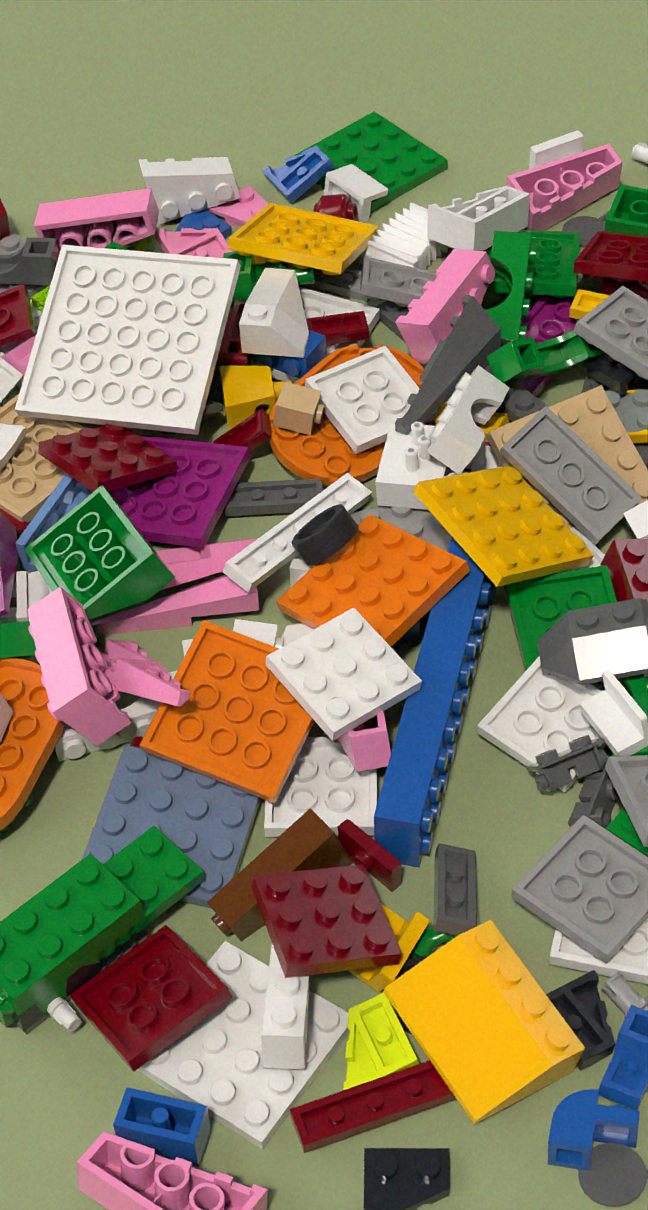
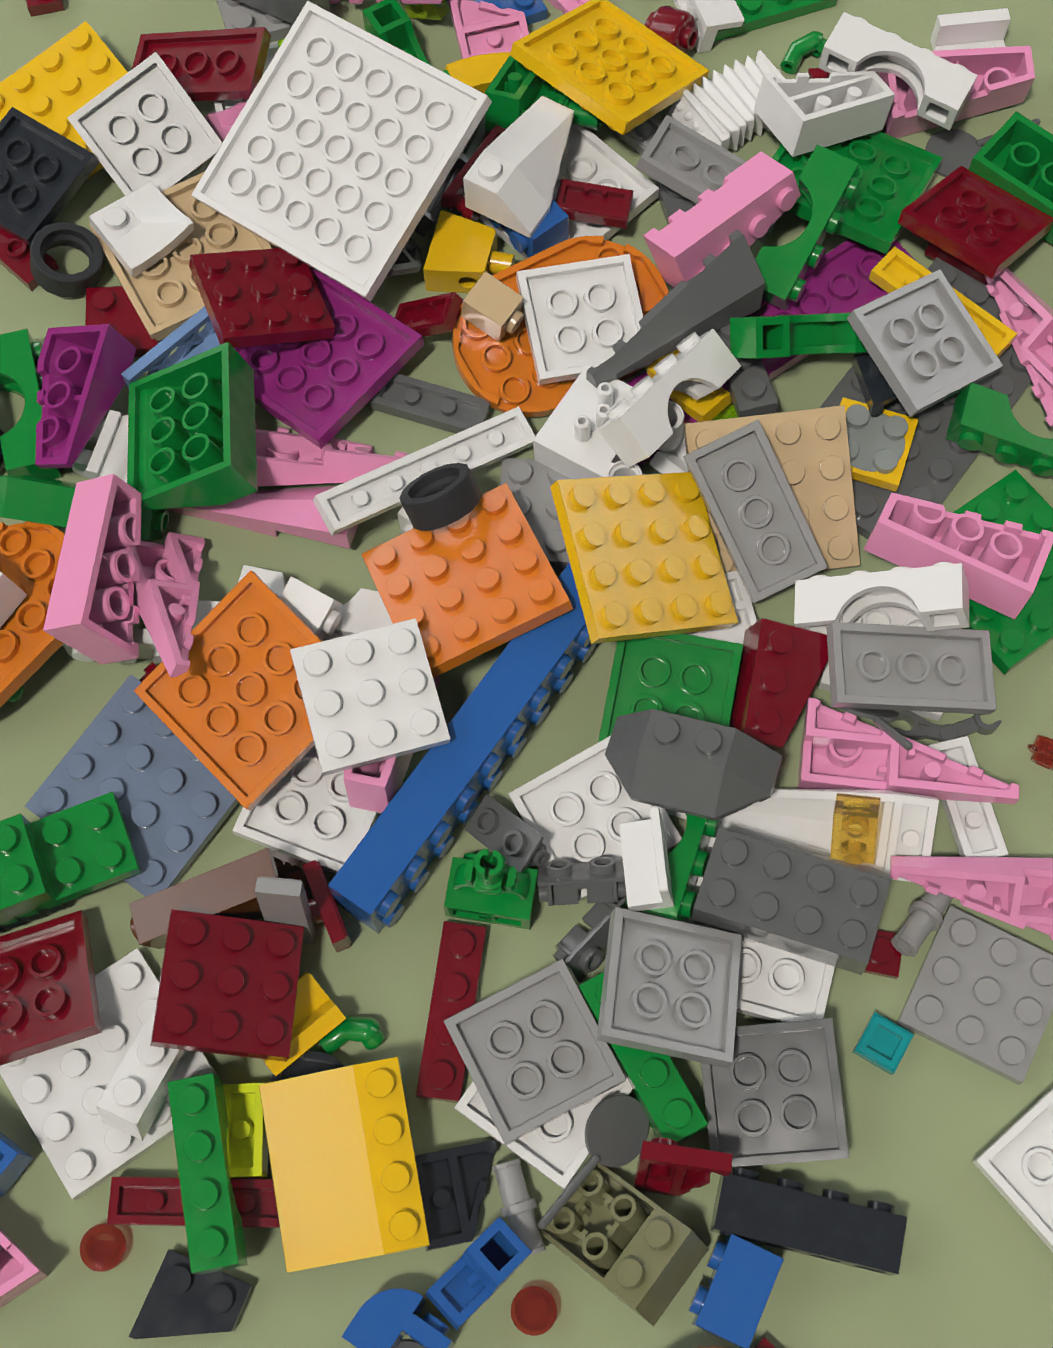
camera: 20 degrees right, 20 degrees up
(306, 1170) = (103, 1247): none -> clear red plate
(344, 837) = (285, 903): none -> light grey tile
(396, 1090) = (207, 1195): none -> green arch
(443, 192) = (799, 48): none -> green arm
(454, 889) = (390, 990): dark grey plate -> none
(492, 751) = (507, 834): none -> dark grey hinge
(499, 794) = (490, 890): none -> green brick
(499, 874) = (453, 991): none -> dark red plate
(554, 180) = (937, 83): none -> white arch

